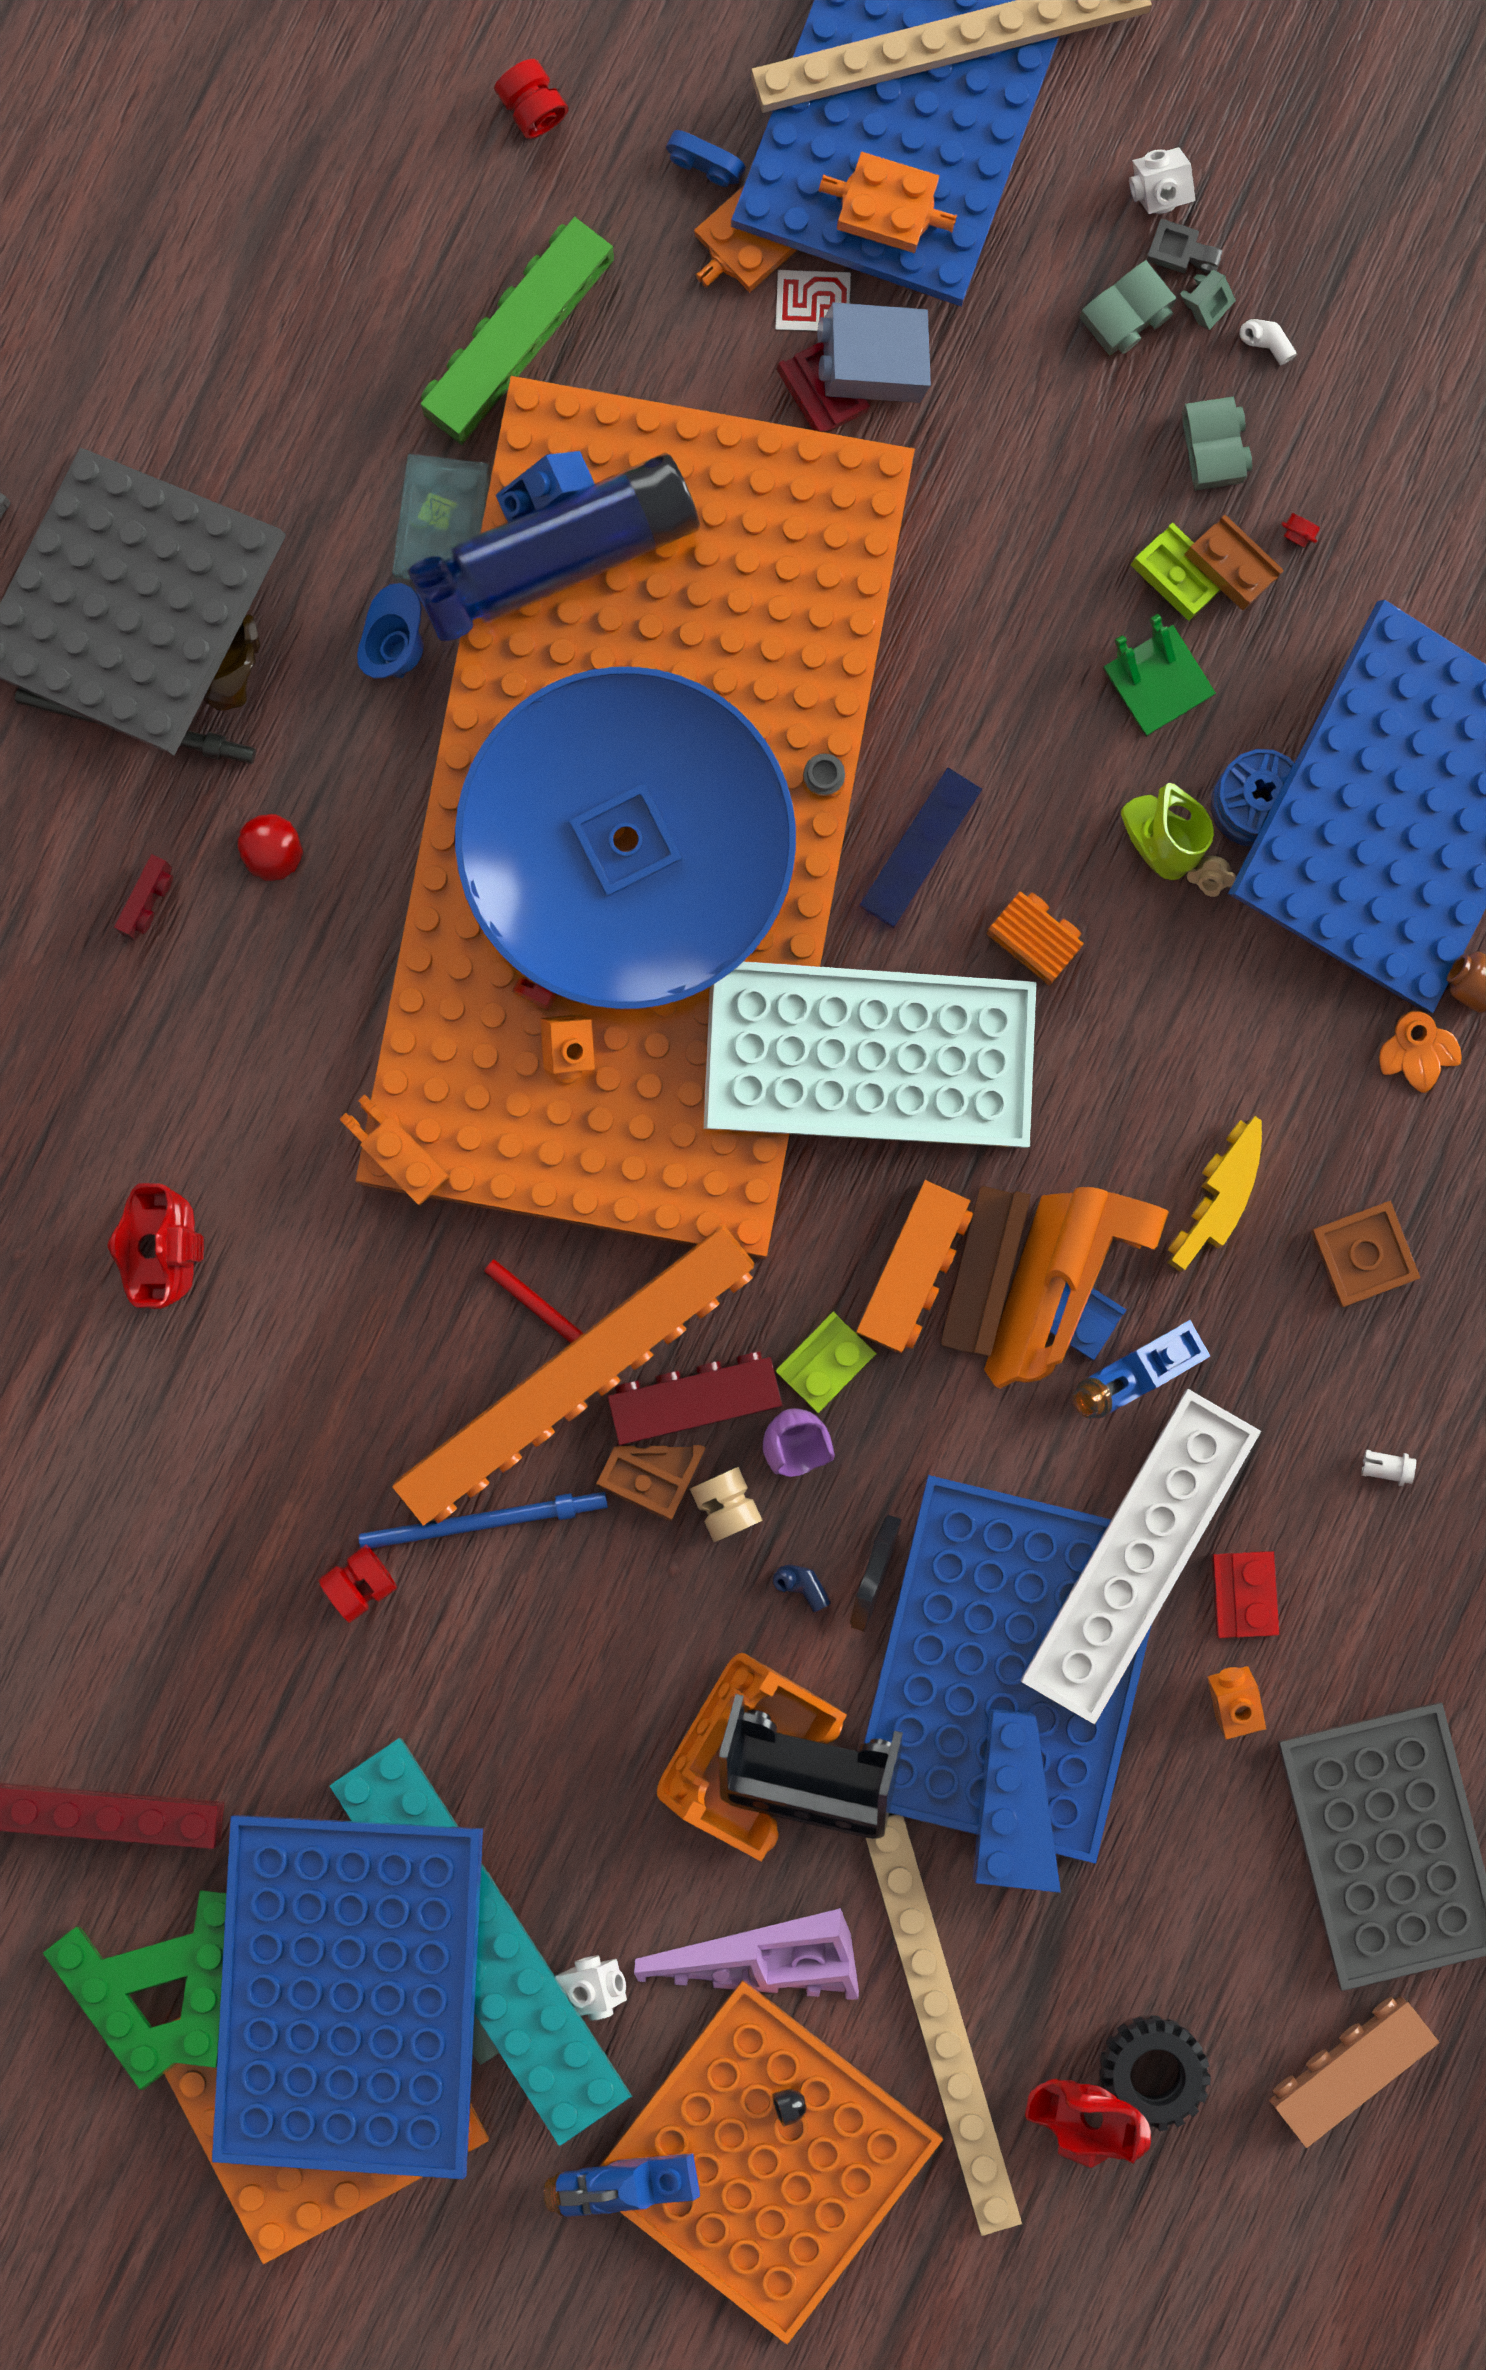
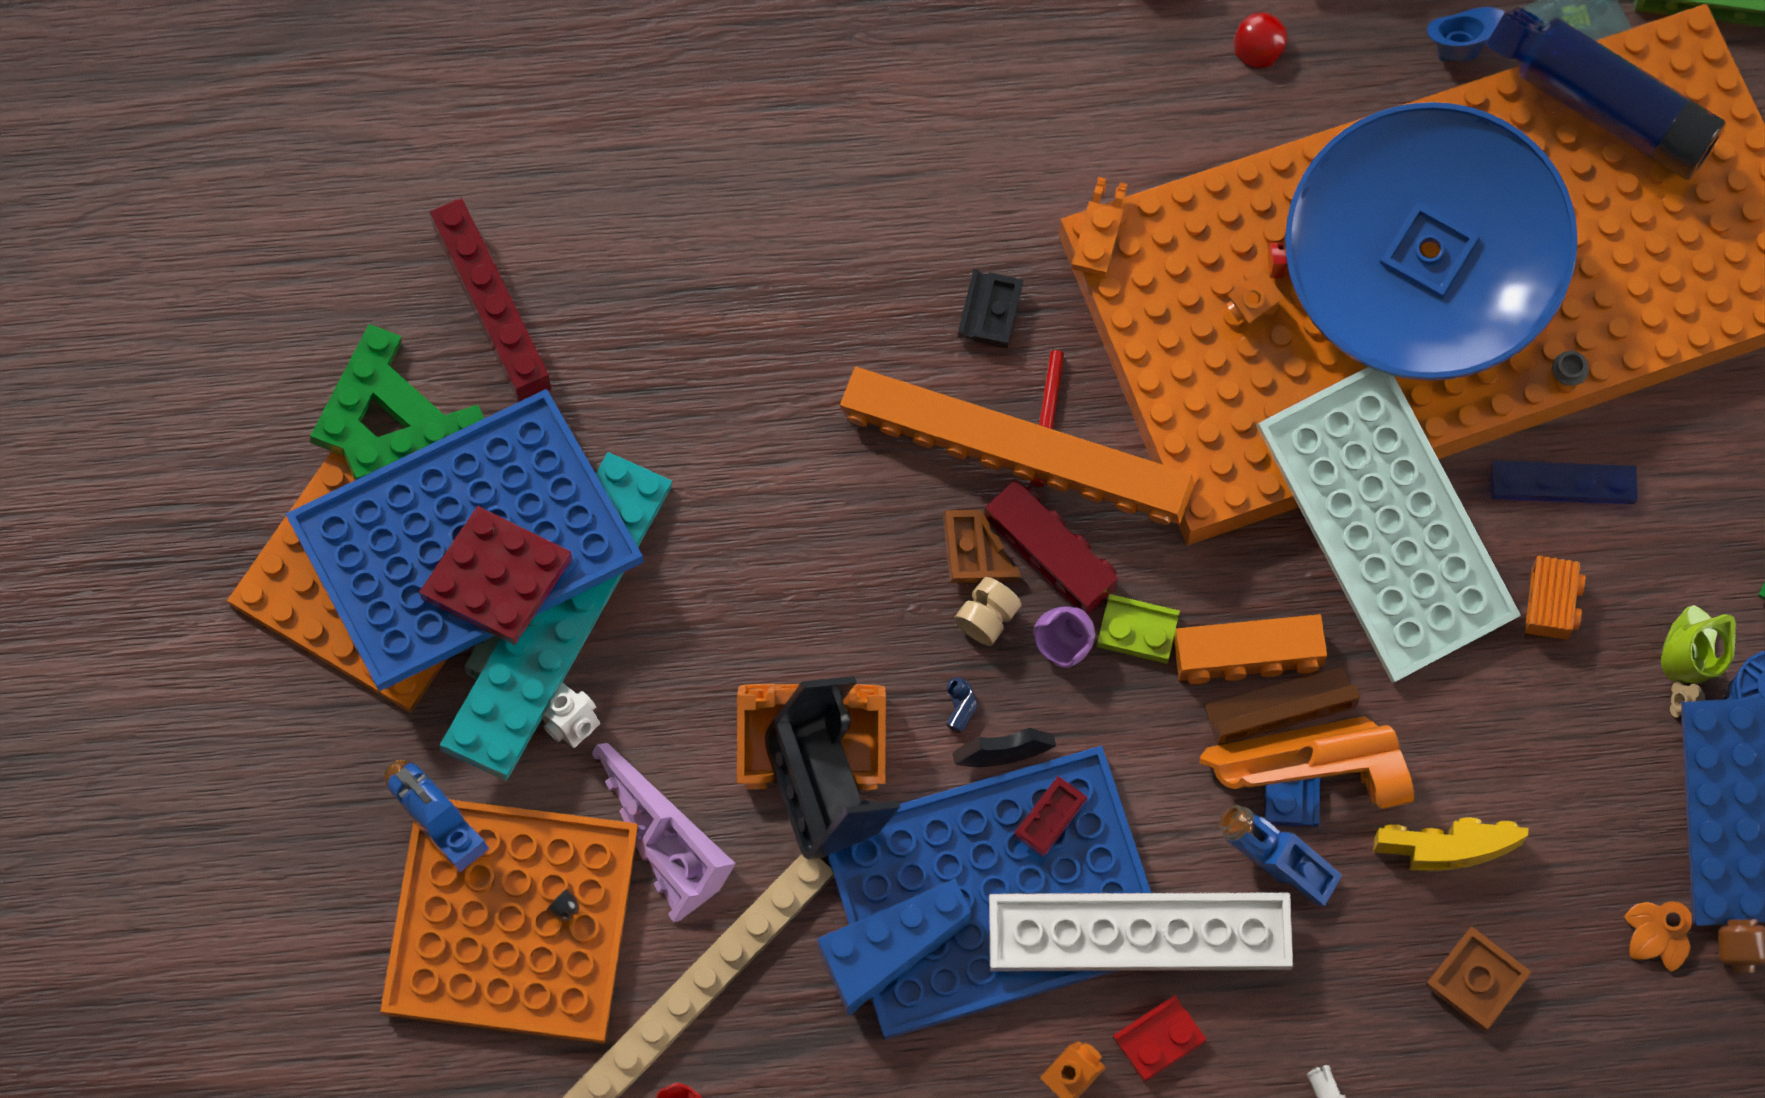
camera: 60 degrees right, 15 degrees down
(169, 1275) = (944, 119): red piece -> none
(345, 1592) = (757, 381): red wheel -> none
(403, 1305) = (990, 308): none -> black plate
(414, 1991) = (495, 575): none -> dark red plate
(544, 483) = (1651, 56): blue slope -> none
(563, 1507) = (912, 501): blue bar -> none
(975, 1572) = (1050, 816): none -> dark red plate

